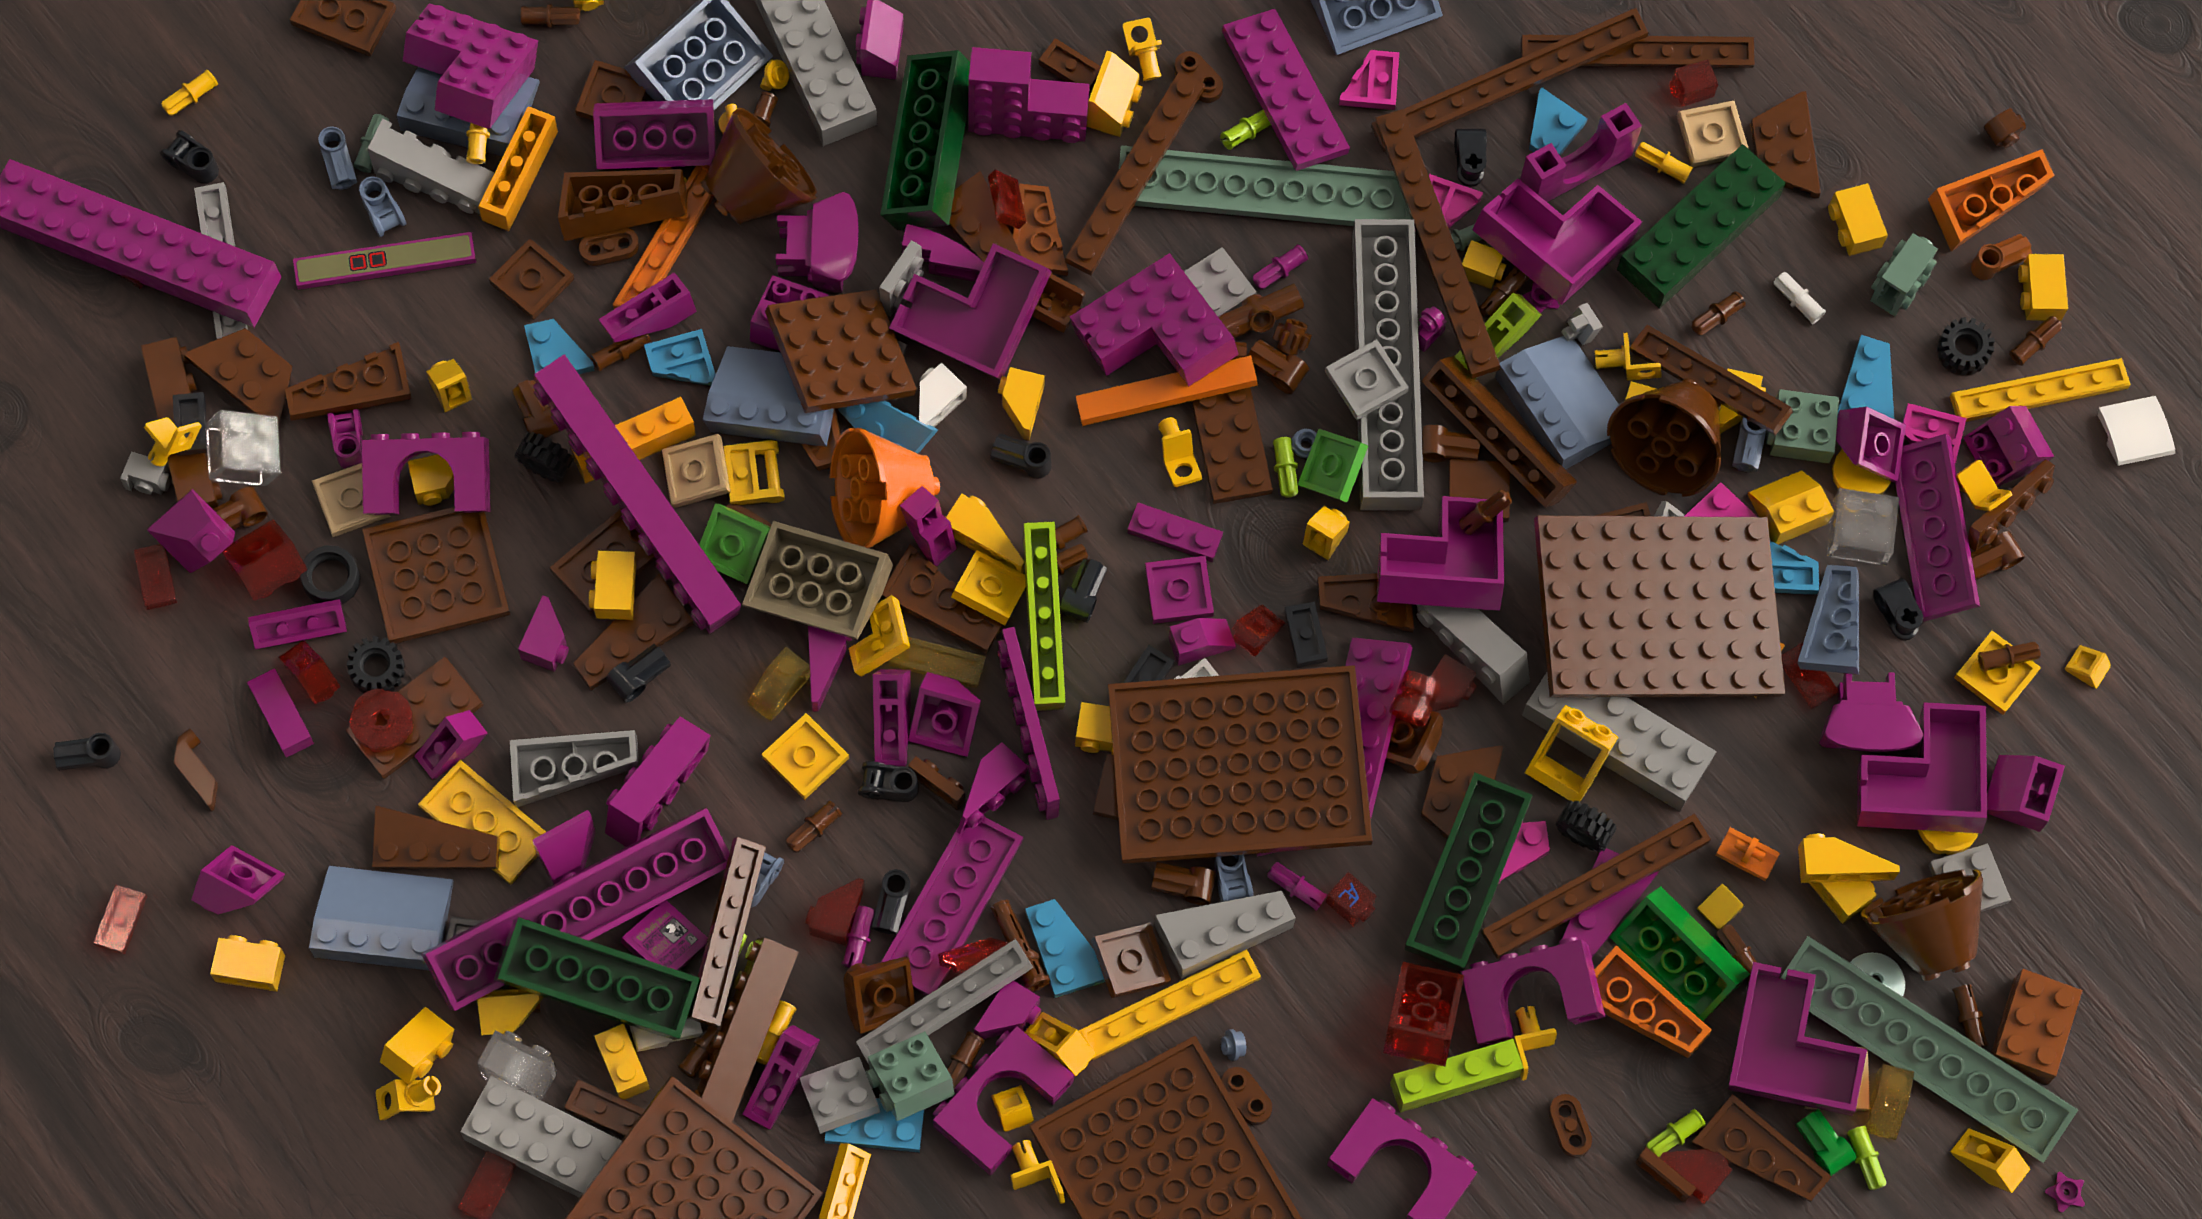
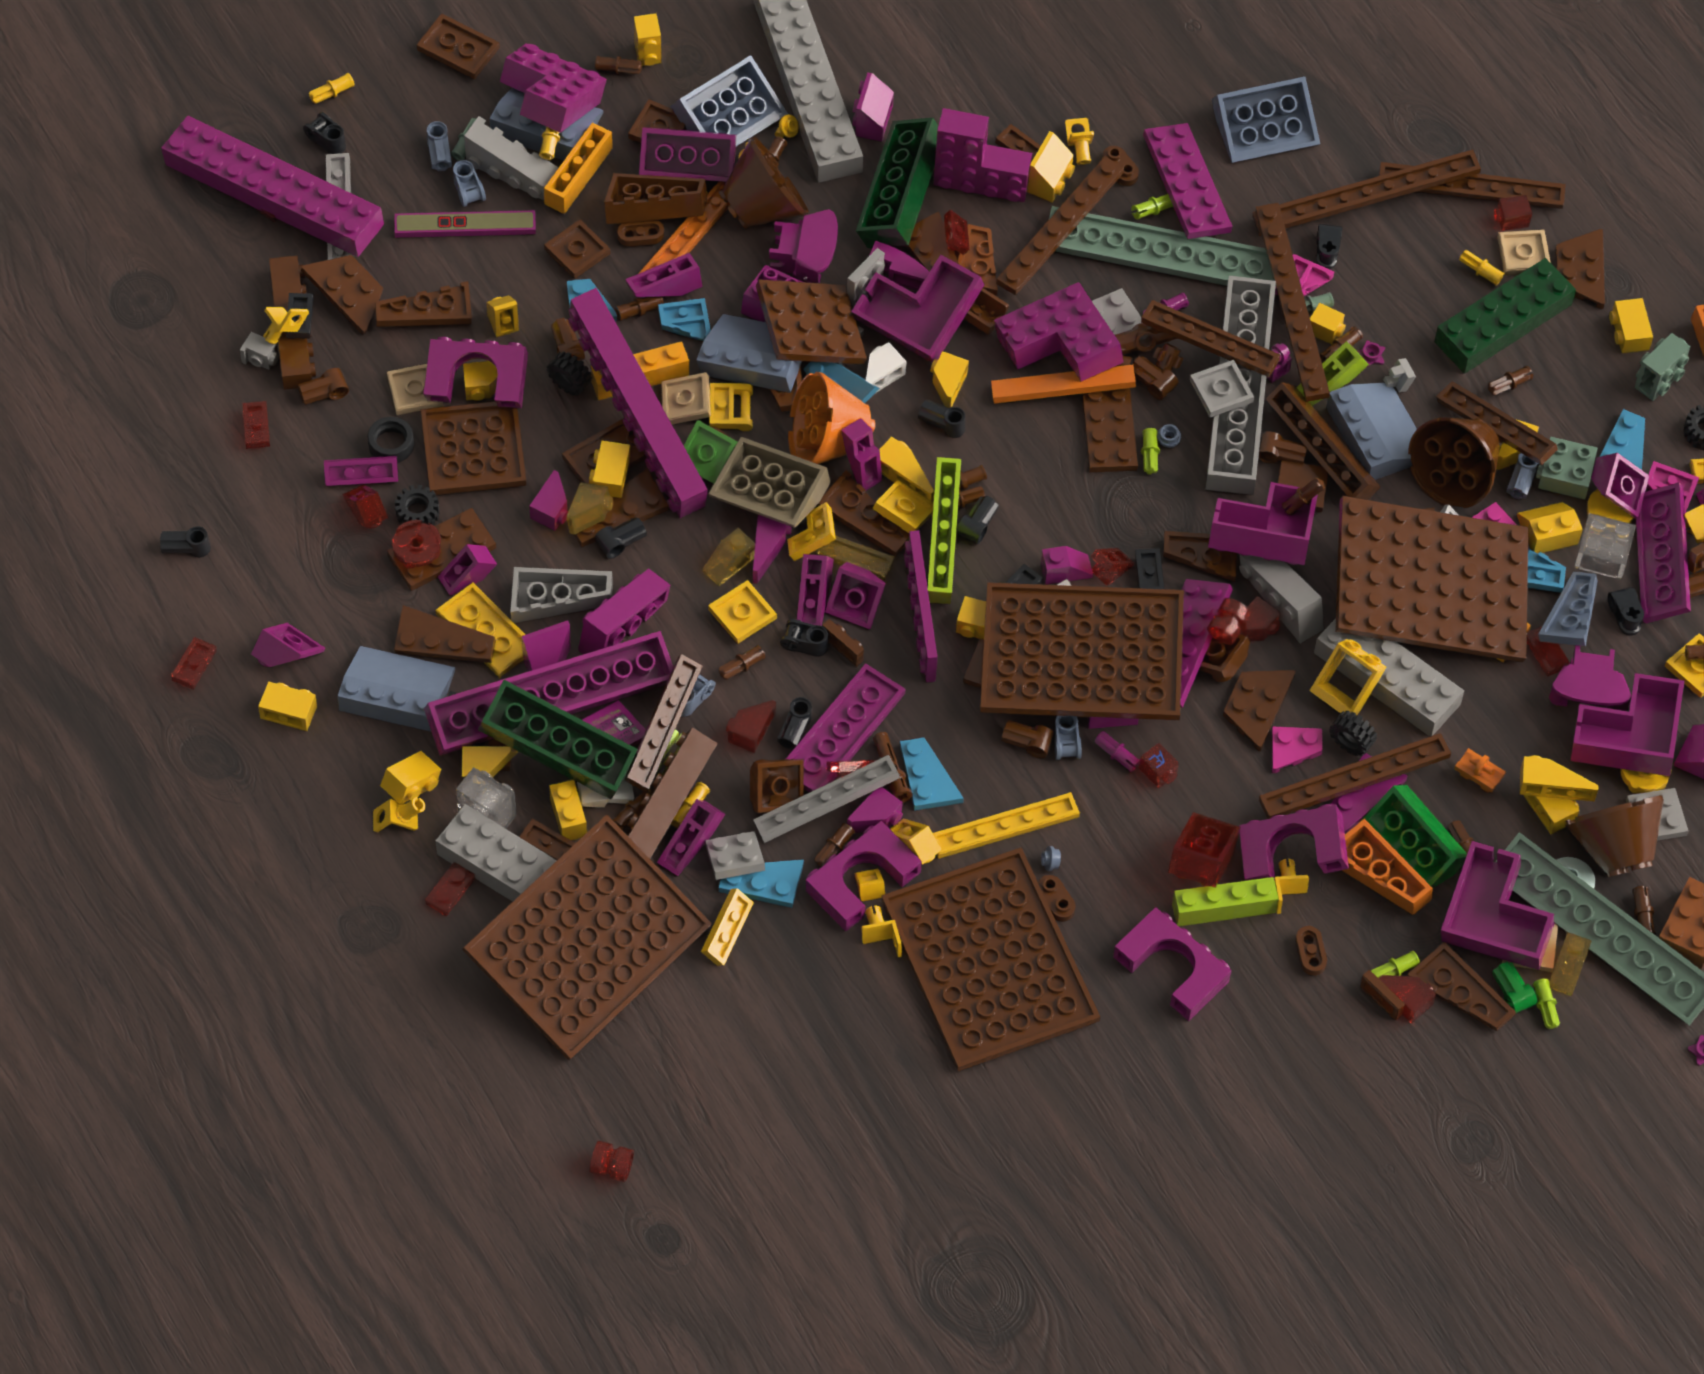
camera: 10 degrees right, 10 degrees down
(192, 532) = (288, 393): magenta slope -> none
(194, 770) = (266, 565): reddish brown piece -> none
(243, 448) = (337, 339): clear brick -> none
(264, 560) = (342, 420): clear red brick -> none
(280, 713) = (339, 532): magenta slope -> none
(346, 434) = (417, 344): magenta piece -> none
(593, 641) = (589, 507): none -> clear yellow slope
(859, 936) = (766, 744): magenta axle -> none
(910, 1076) = (792, 846): sand green brick -> none
(995, 778) = (888, 644): magenta slope -> none
(1130, 960) = (977, 787): plate -> none
(1175, 532) = (1056, 488): magenta plate -> none
(1178, 452) = (1066, 429): yellow bracket -> none
(1179, 589) = (1053, 526): magenta plate -> none
(1221, 930) = (1049, 774): light grey wedge -> none
(1325, 531) = (1174, 499): yellow slope -> none
(1332, 465) = (1187, 450): bright green plate -> none
(1343, 312) = (1210, 338): none -> reddish brown plate
(1374, 82) = (1259, 184): dark pink wing -> none
(1468, 872) = (1254, 753): dark green brick -> none
(1553, 247) = (1385, 314): magenta piece -> none
(1554, 123) = (1397, 233): dark azure wing -> none
(1610, 145) = (1387, 265): magenta arch -> none
(1621, 357) = (1429, 403): yellow bracket -> none
(1720, 907) = (1454, 807): yellow slope -> none
(1799, 297) = (1577, 377): white axle -> none
(1991, 1159) = (1647, 1017): yellow slope -> none

